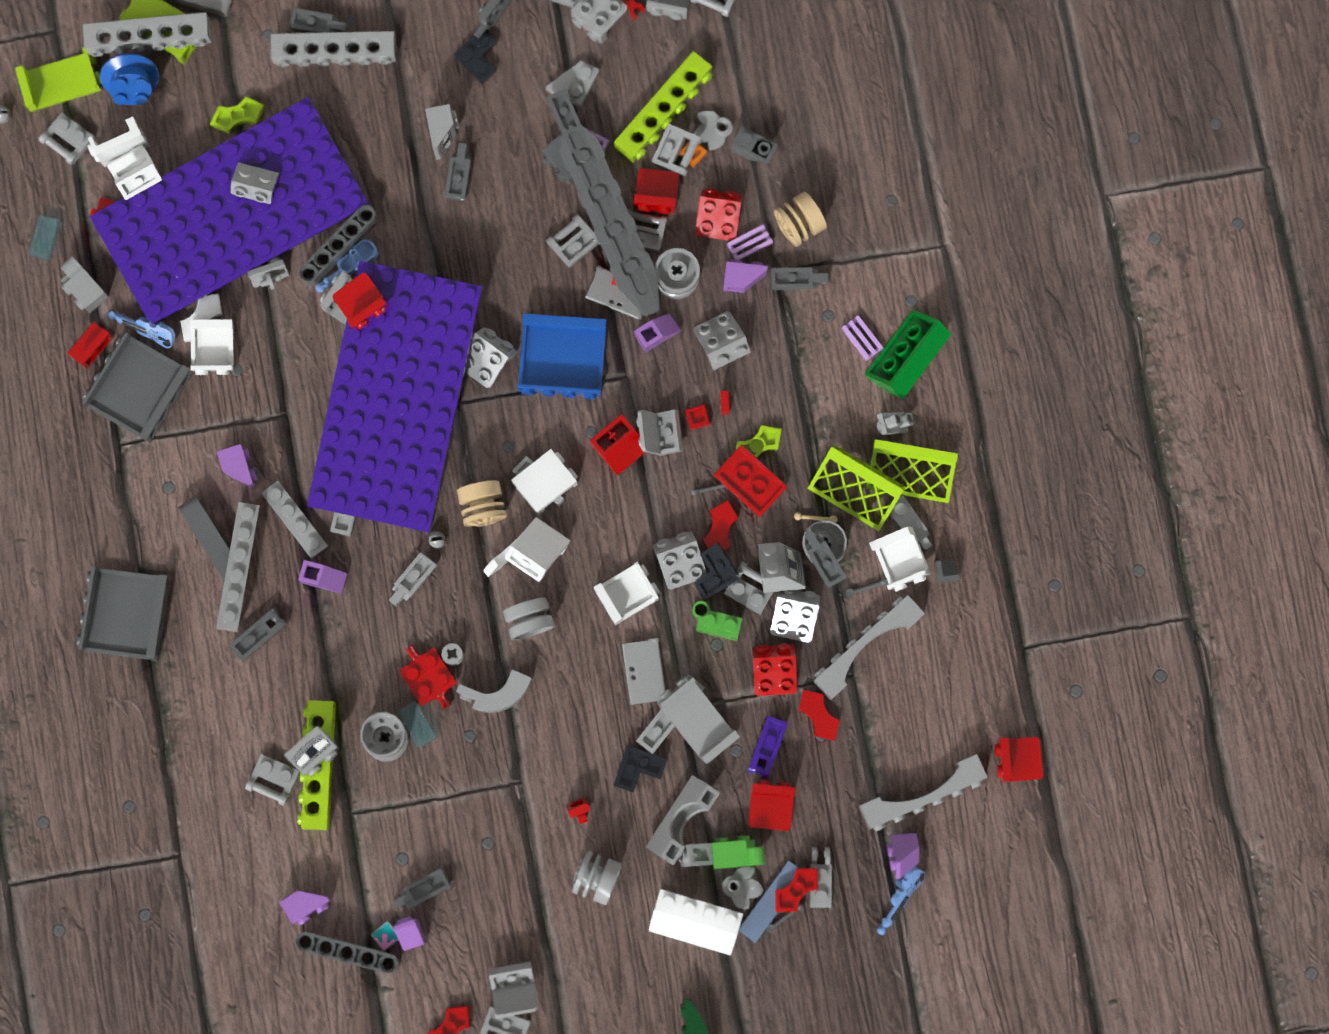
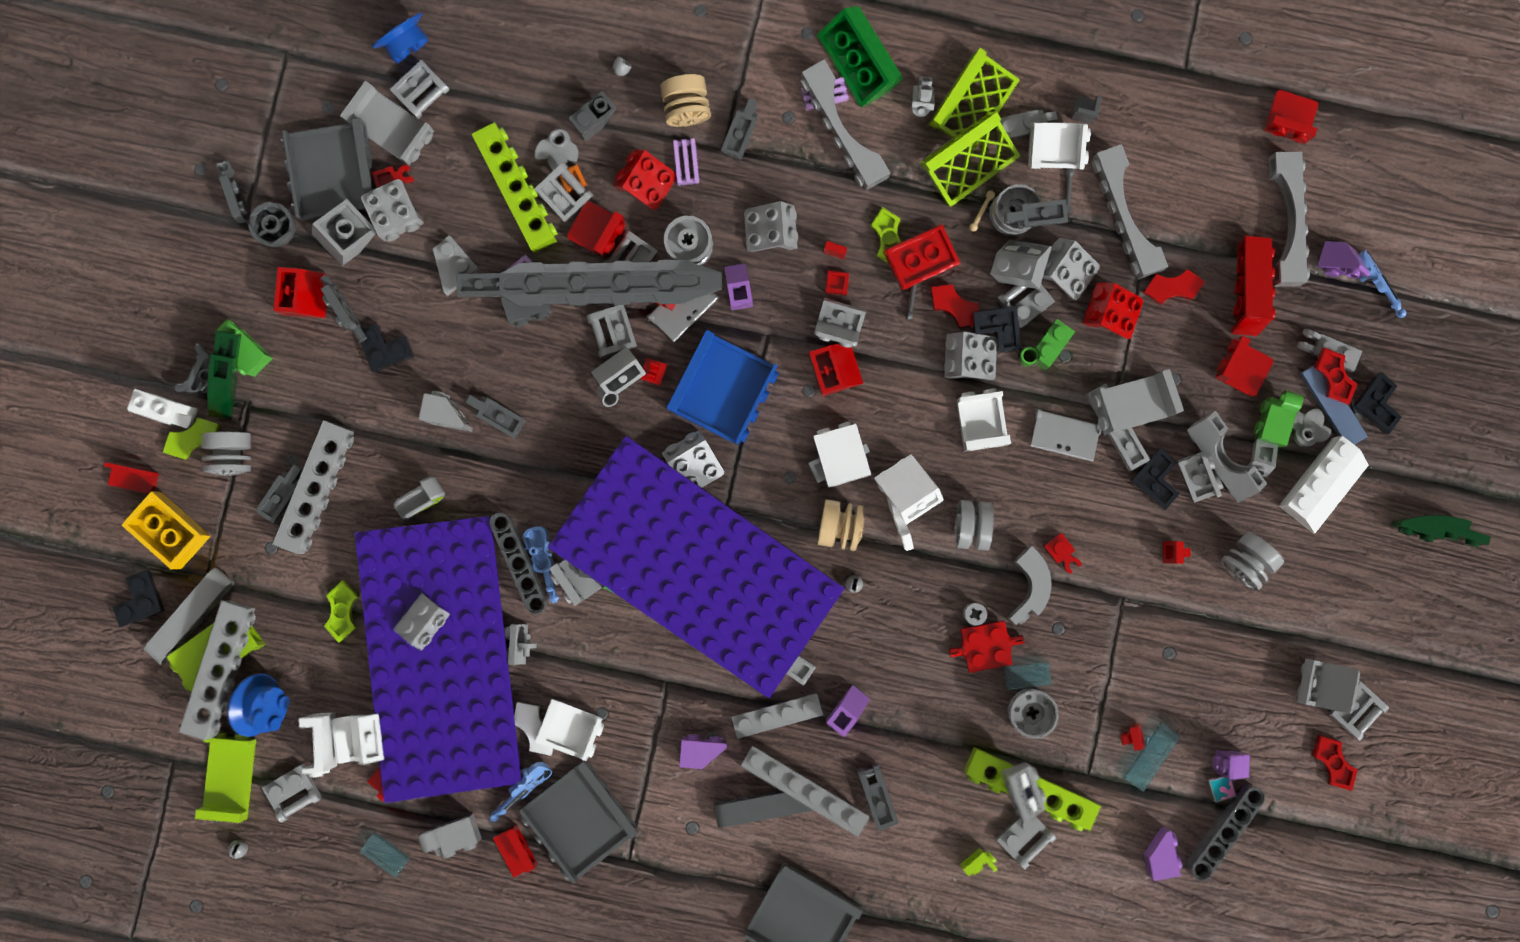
camera: 65 degrees left, 5 degrees up
(232, 742) = (975, 862): none -> lime bracket
(359, 139) = (419, 499): none -> light grey animal
(360, 301) = (591, 563): red bracket -> none
(388, 863) = (1152, 757): none -> clear light blue tile
(400, 839) = (1134, 736): none -> red tile
(412, 578) = (884, 622): light grey hinge -> none
(423, 889) = (1192, 734): dark grey hinge -> none
(534, 260) = (616, 376): none -> light grey hinge
(540, 709) = (1061, 550): none -> red plate
(552, 291) = (654, 371): none -> red tile
(655, 803) = (1199, 476): none -> light grey bracket
(742, 276) = (716, 183): medium lavender slope -> none
(768, 746) = (1185, 347): dark purple plate -> none
(787, 935) = (1373, 403): none -> black plate
(810, 153) = (621, 66): none -> light grey hinge
(847, 783) = (1254, 286): none -> red wedge
(865, 331) = (867, 164): none -> light grey arch

